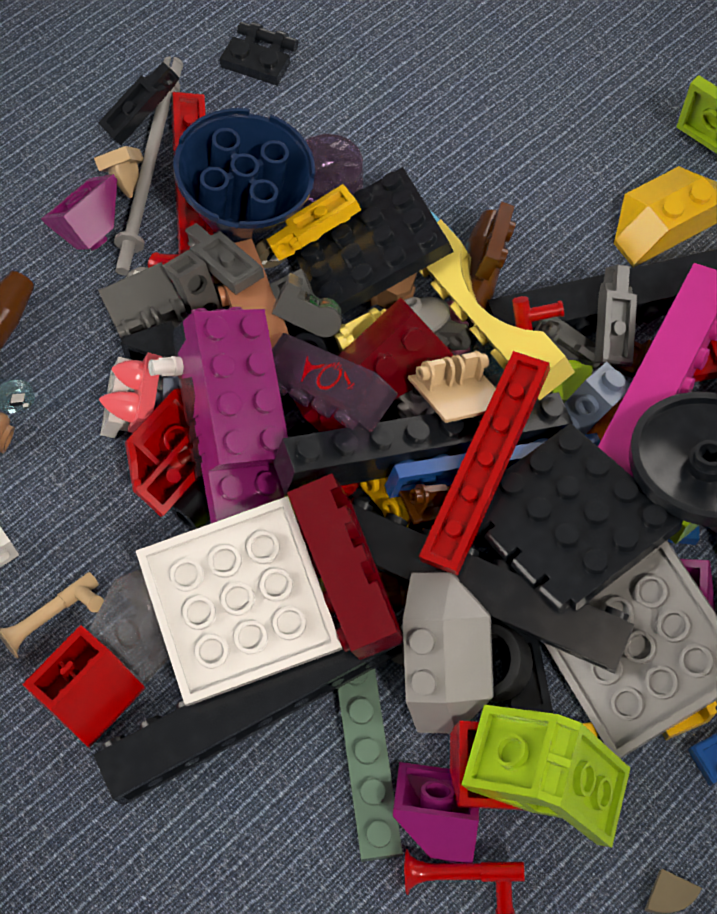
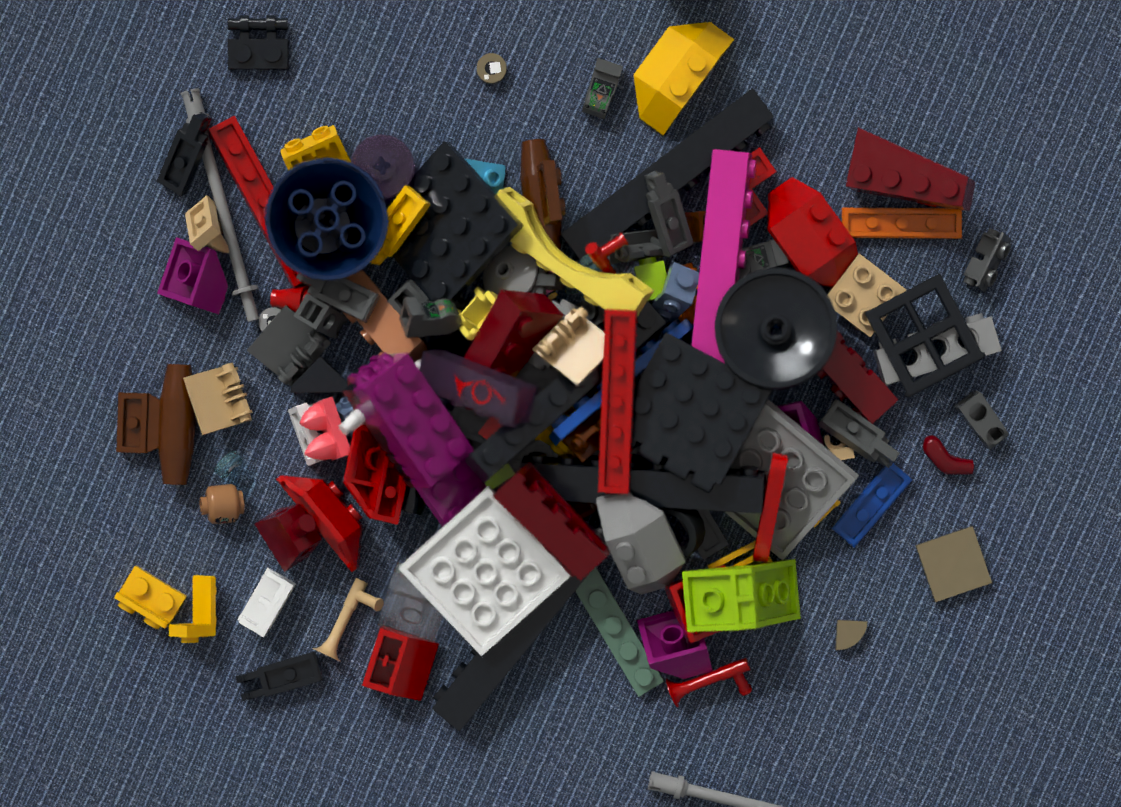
camera: 25 degrees left, 25 degrees up
(37, 488) = (289, 535): none -> dark red torso
(42, 324) = (218, 398): none -> tan hinge
(94, 490) = (333, 518): none -> red wedge
(478, 146) = (491, 68): none -> dark tan tile
(588, 195) = (602, 88): none -> leg
(629, 669) = (770, 507): none -> red beam

